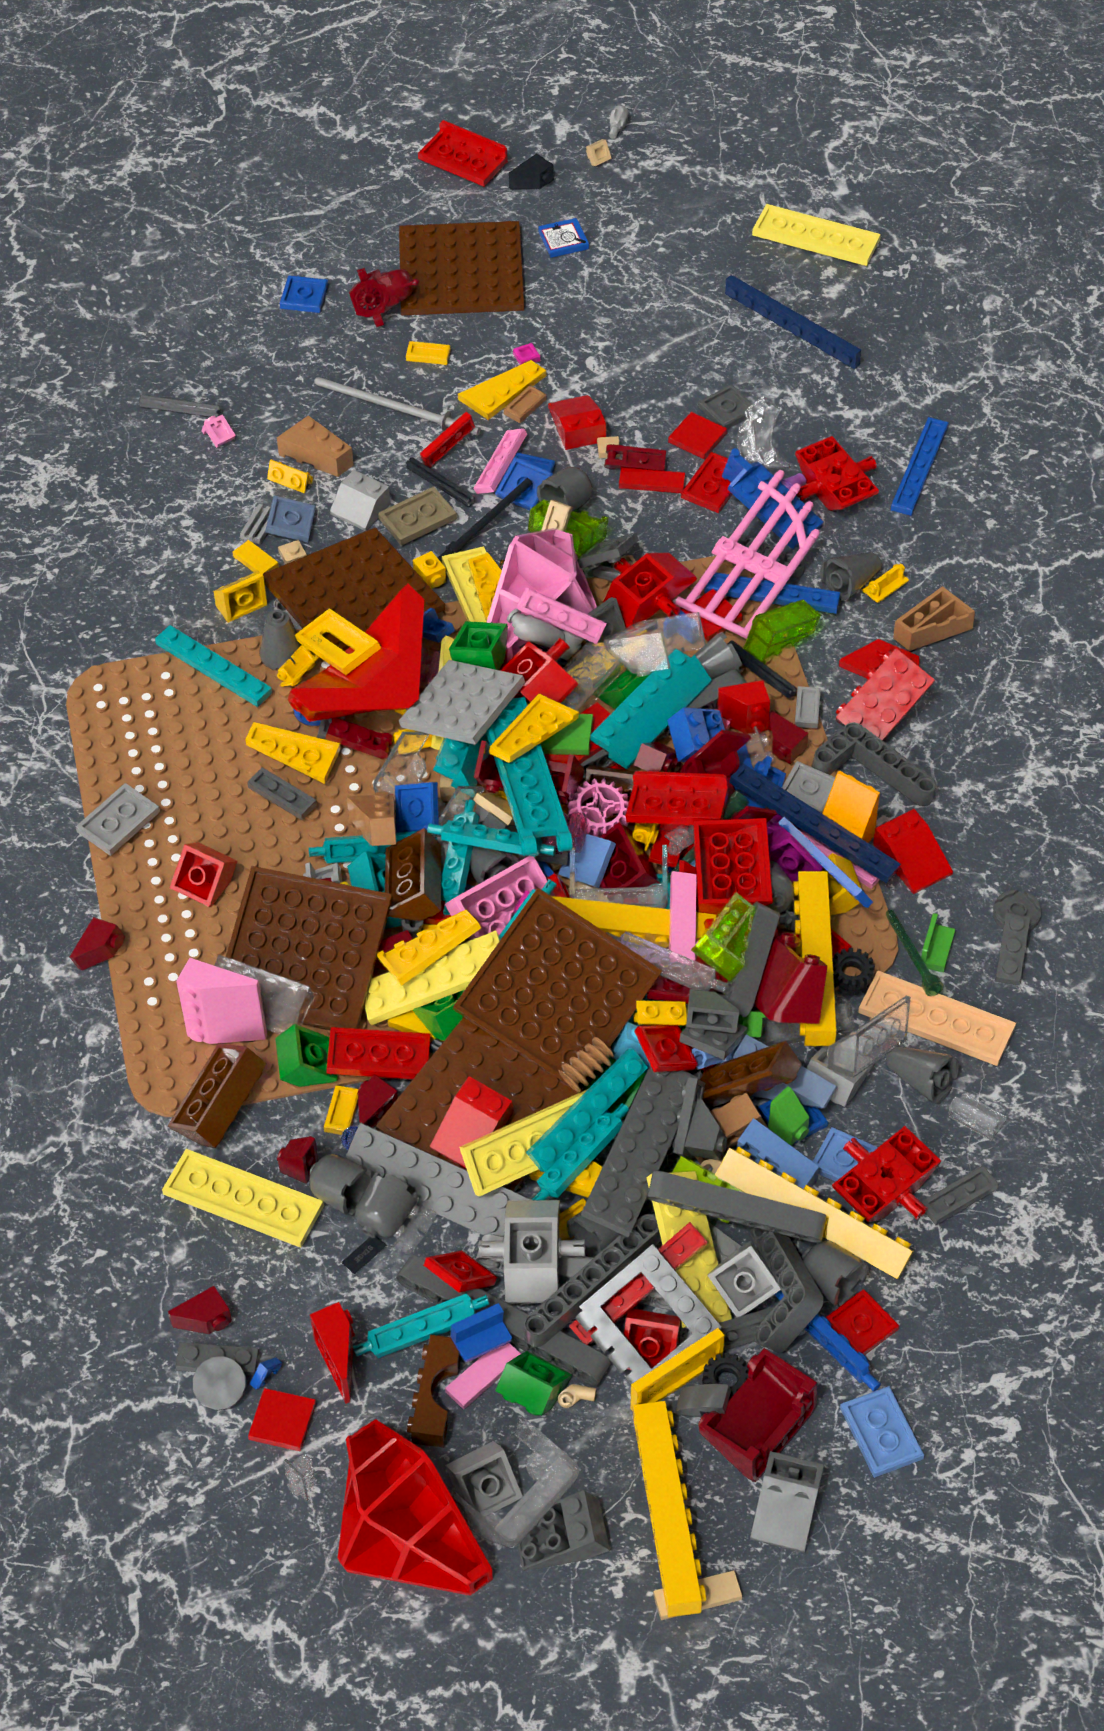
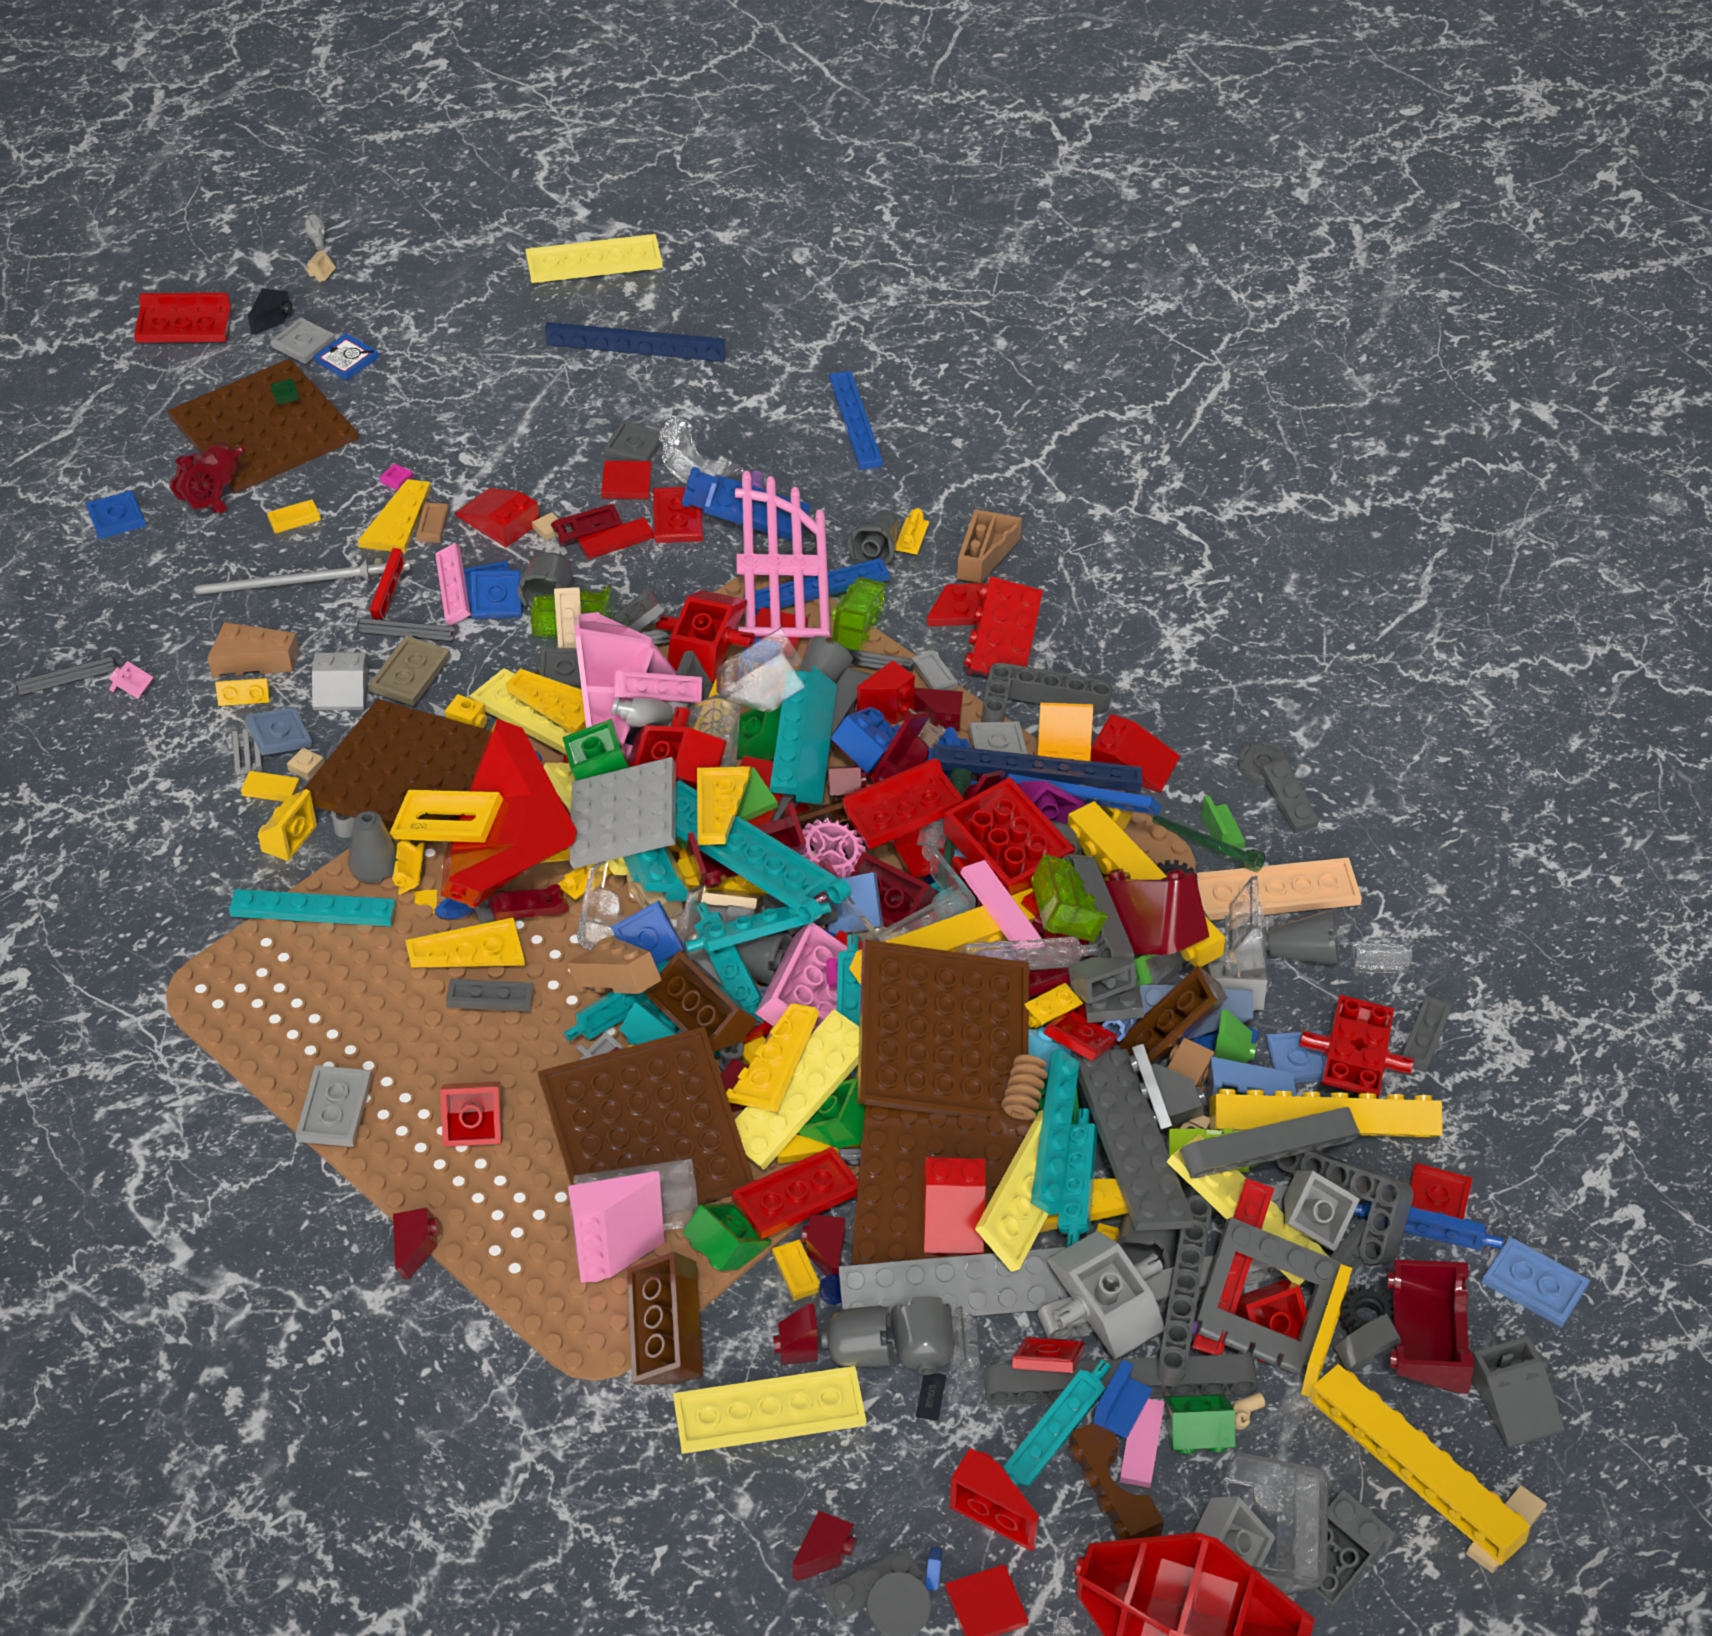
camera: 35 degrees left, 5 degrees down
(455, 546) = (472, 682): black bar -> none
(488, 247) = (284, 391): none -> dark green plate
(539, 209) = (302, 340): none -> light grey plate
(645, 833) = (890, 852): yellow hinge -> none
(834, 475) = (791, 458): red slope -> none
(834, 1271) = (1382, 1153): dark grey cylinder -> none

